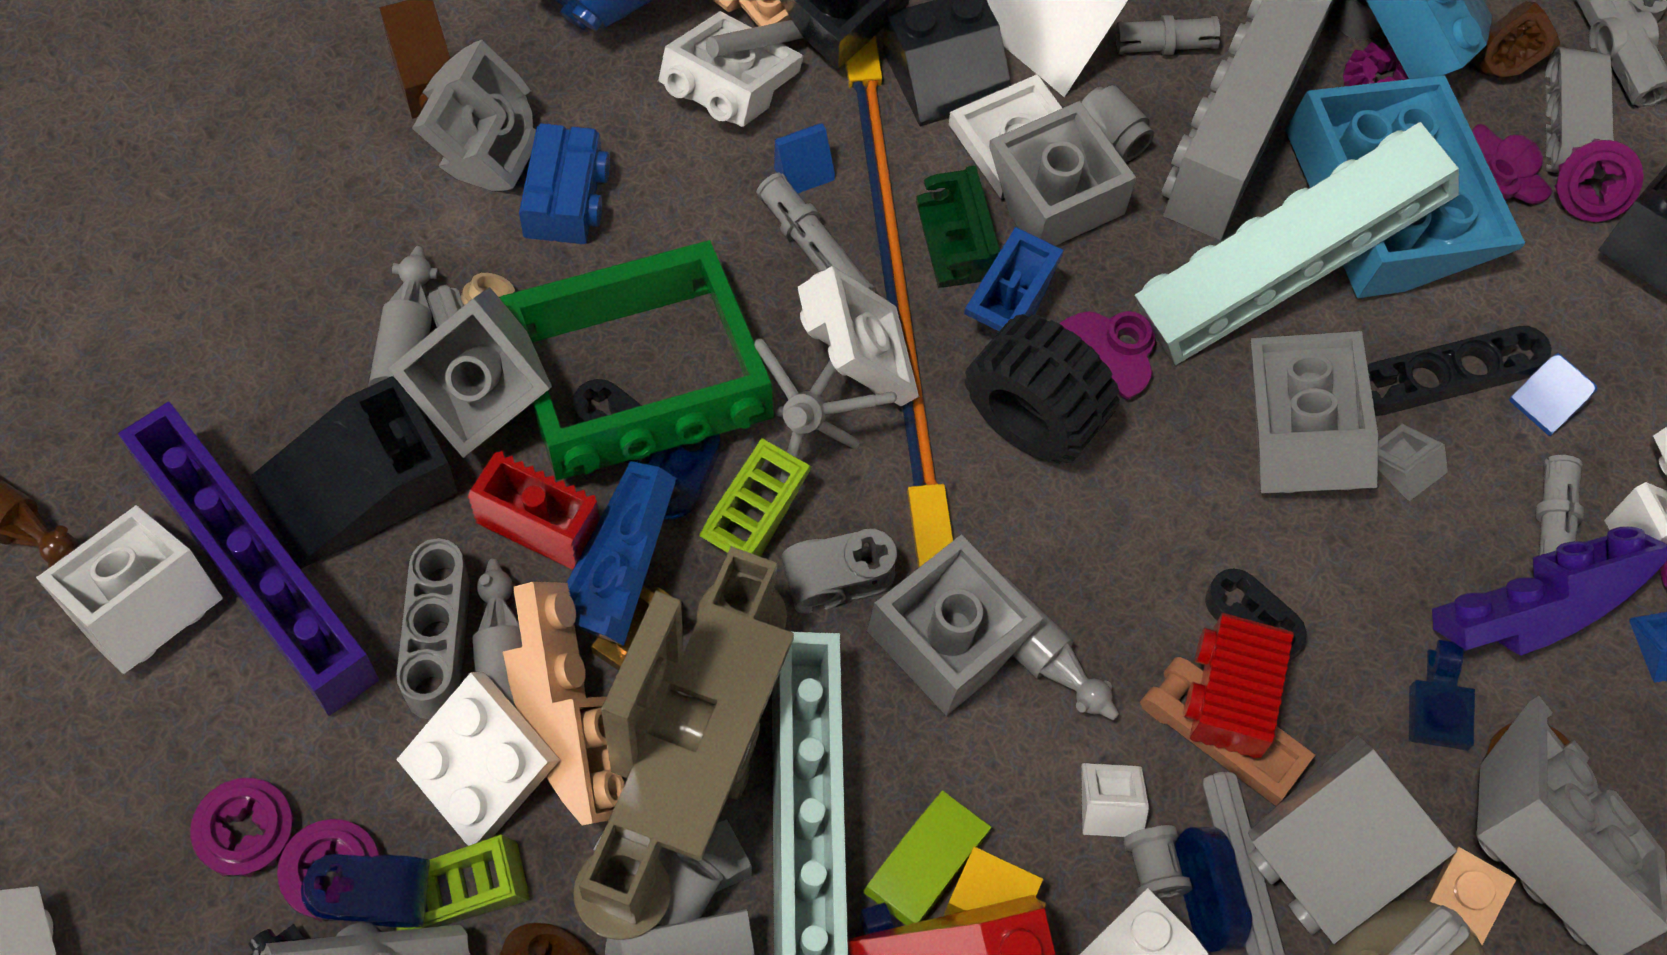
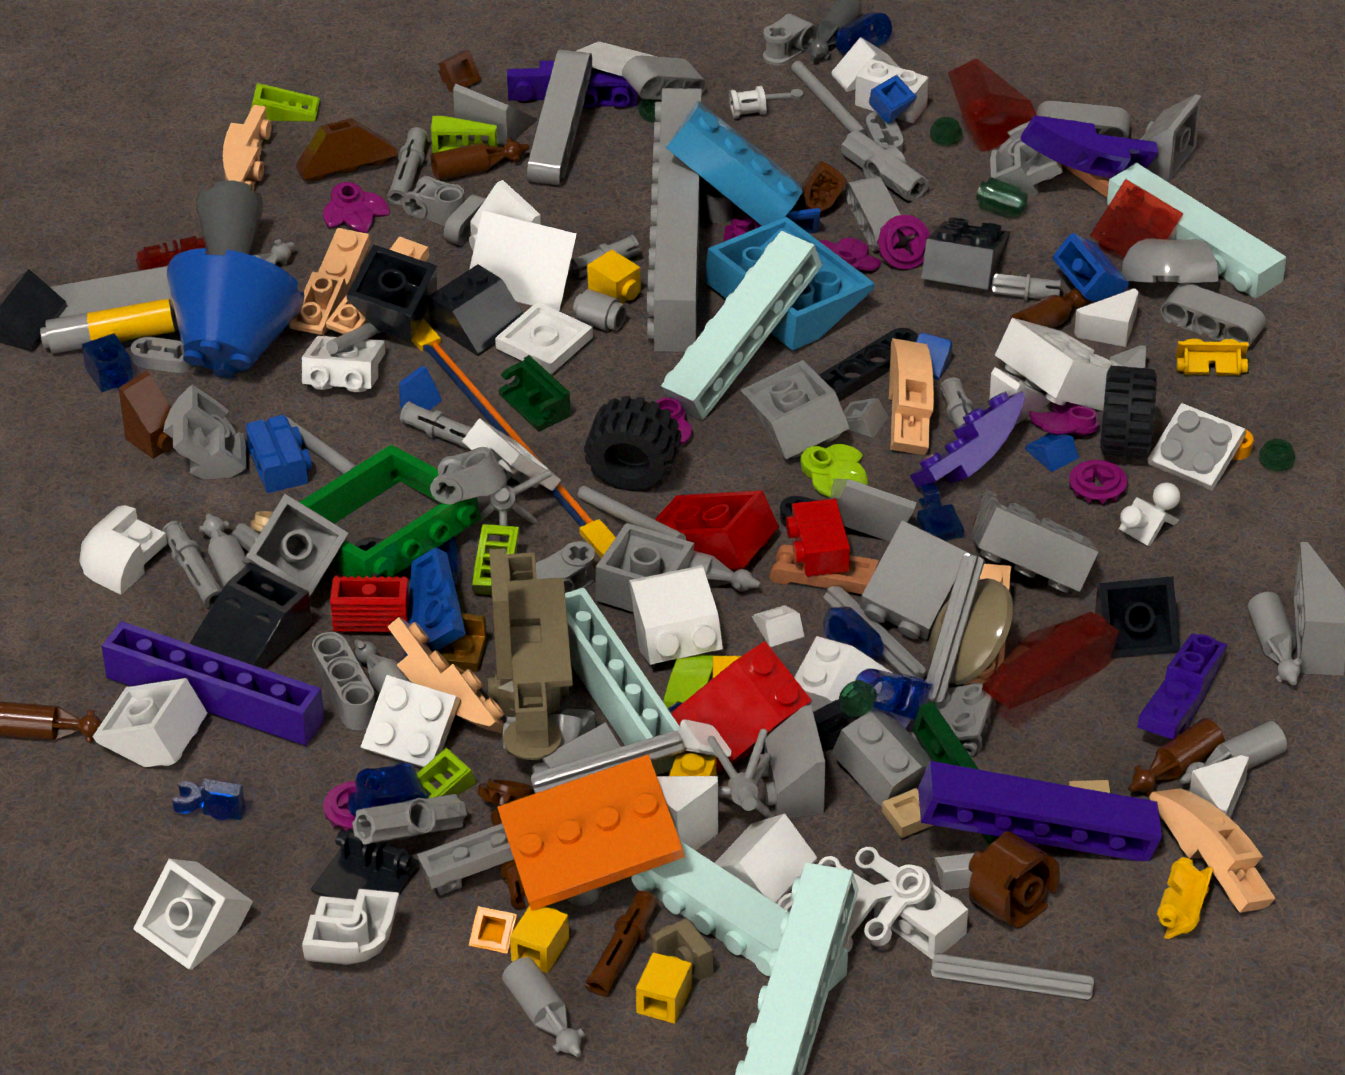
camera: 20 degrees left, 20 degrees down
(143, 775) = (215, 797): none -> clear blue plate
(231, 803) = (306, 800): magenta gear -> none
(271, 256) = (119, 548): none -> white brick
(355, 306) = (188, 555): none -> light grey pin
(630, 191) = (323, 450): none -> light grey bar
(758, 369) = (467, 476): none -> light grey piece
(954, 742) = (675, 615): none -> white slope
(987, 509) = (624, 512): none -> light grey bar
(1015, 280) = (585, 398): blue slope -> none
(1061, 175) = (584, 345): light grey slope -> none
(1096, 578) = (723, 524): none -> red slope
(1157, 862) = (810, 627): light grey bush -> none
(1161, 77) = (614, 276): none -> yellow brick
(1329, 547) = (832, 463): none -> lime plate
(1346, 649) = (870, 508): none -> light grey slope
(1472, 86) = (806, 219): none -> blue slope
(1498, 461) = (911, 396): none -> light nougat slope

